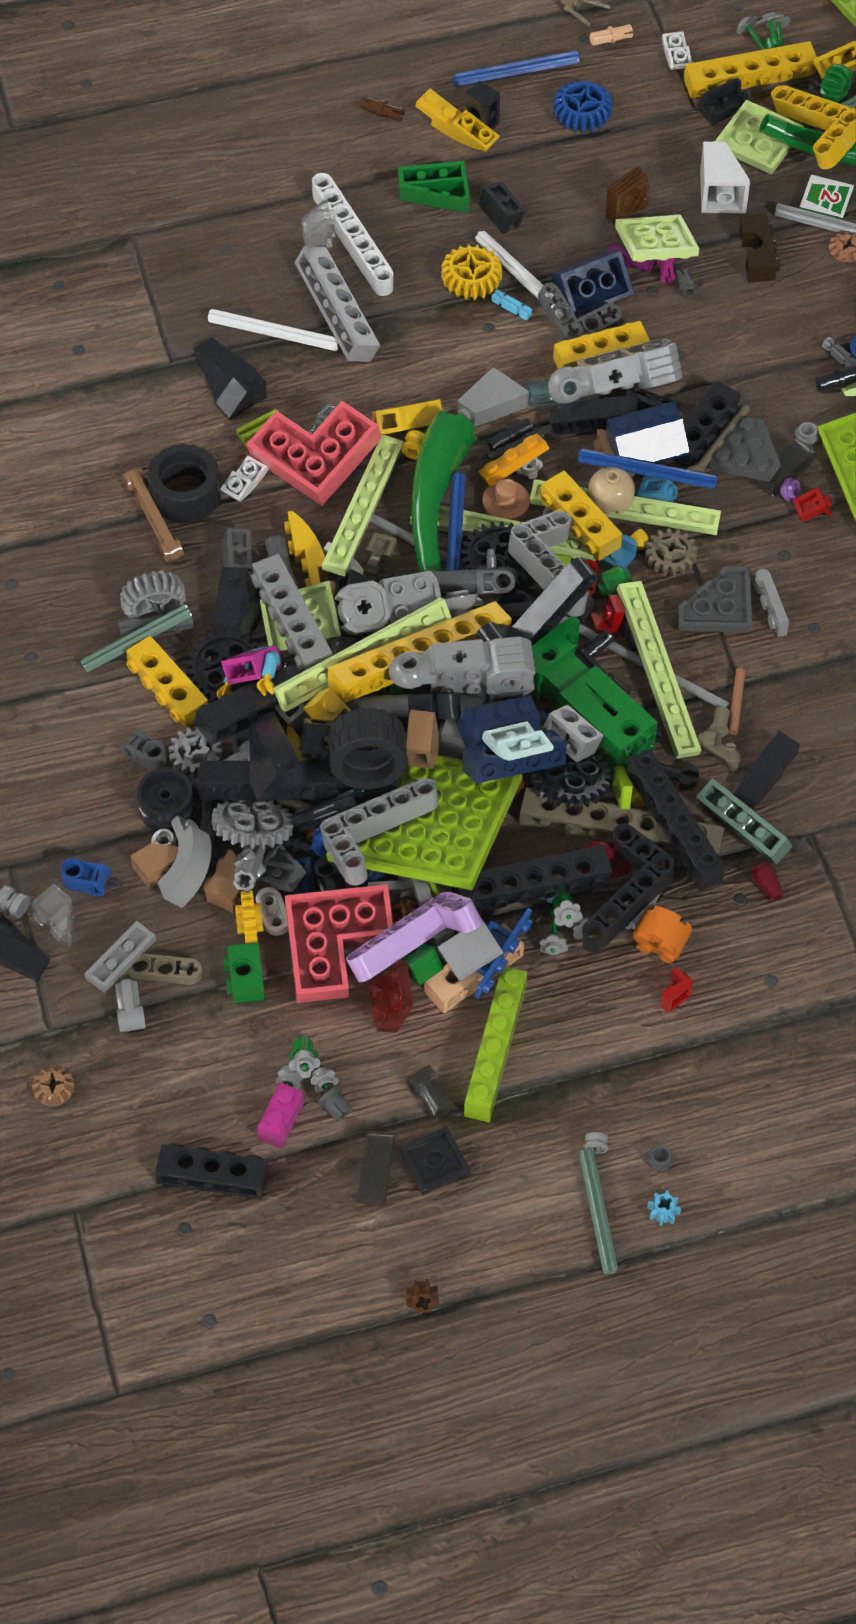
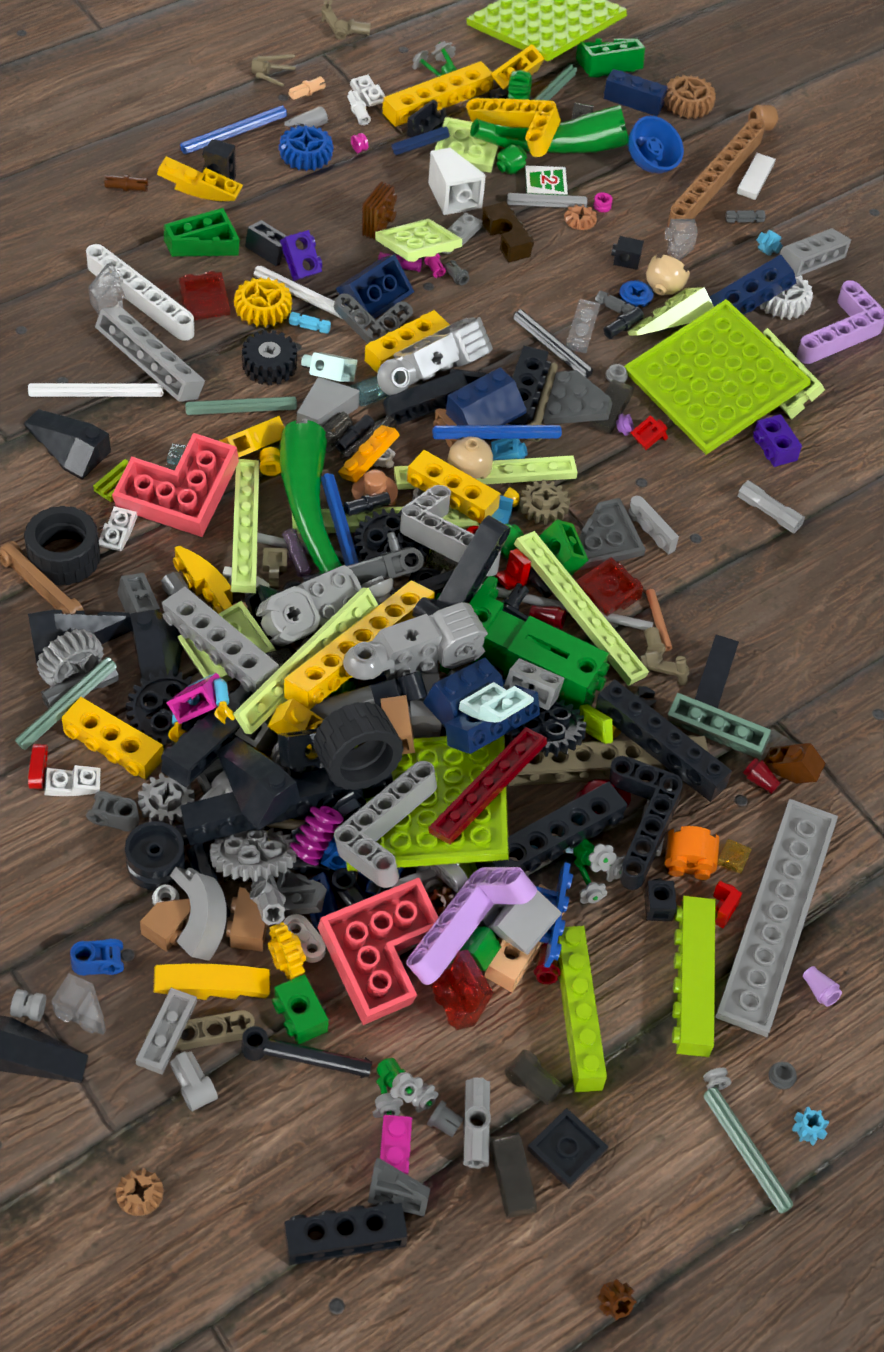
camera: 25 degrees left, 5 degrees down
(92, 690) = (38, 766): none -> red beam
(119, 714) = (78, 782): none -> white slope
(178, 925) = (212, 980): none -> yellow slope
(192, 573) = (49, 624): none -> black wedge
(232, 1011) = (301, 1054): none -> black piece
(265, 1143) = (395, 1186): none -> dark grey wing
(308, 819) = (317, 834): none -> magenta piece
(357, 1127) = (476, 1137): none -> light grey piece
(404, 545) = (296, 552): none -> clear purple pin
(409, 379) = (241, 405): none -> sand green axle
(414, 252) = (204, 295): none -> clear red plate
(454, 345) = (269, 357): none -> black wheel
(482, 817) = (487, 785): none -> dark red tile
(482, 1006) = (543, 974): none -> dark red cone
(489, 426) = (335, 429): none -> clear smoke piece
(489, 512) = (366, 504): none -> black pin
(511, 359) = (330, 366): none -> light aqua torso
(520, 230) = (296, 256): none -> dark purple brick
(597, 73) = (313, 117): none -> light grey piece
(613, 978) = (660, 909): none -> black brick
(617, 1046) = (695, 977): none -> lime brick
(627, 670) = (549, 614): none -> dark red cone
(642, 111) = (359, 142): none -> dark pink bush
(658, 69) = (358, 107): none -> white axle
(668, 603) = (565, 545): none -> green brick
(698, 656) = (610, 587): none -> clear red plate
(705, 949) = (734, 856): none -> clear yellow plate
(707, 122) = (420, 140): none -> dark blue axle
(714, 234) = (465, 227): none -> light grey plate
(722, 1015) = (777, 918): none -> light grey plate
(735, 1093) = (823, 988): none -> lavender cone
(754, 384) = (552, 343): none -> axle
(794, 371) = (583, 326): none -> clear plate
(797, 164) = (511, 159): none -> green head
(806, 877) = (795, 762): none -> reddish brown slope

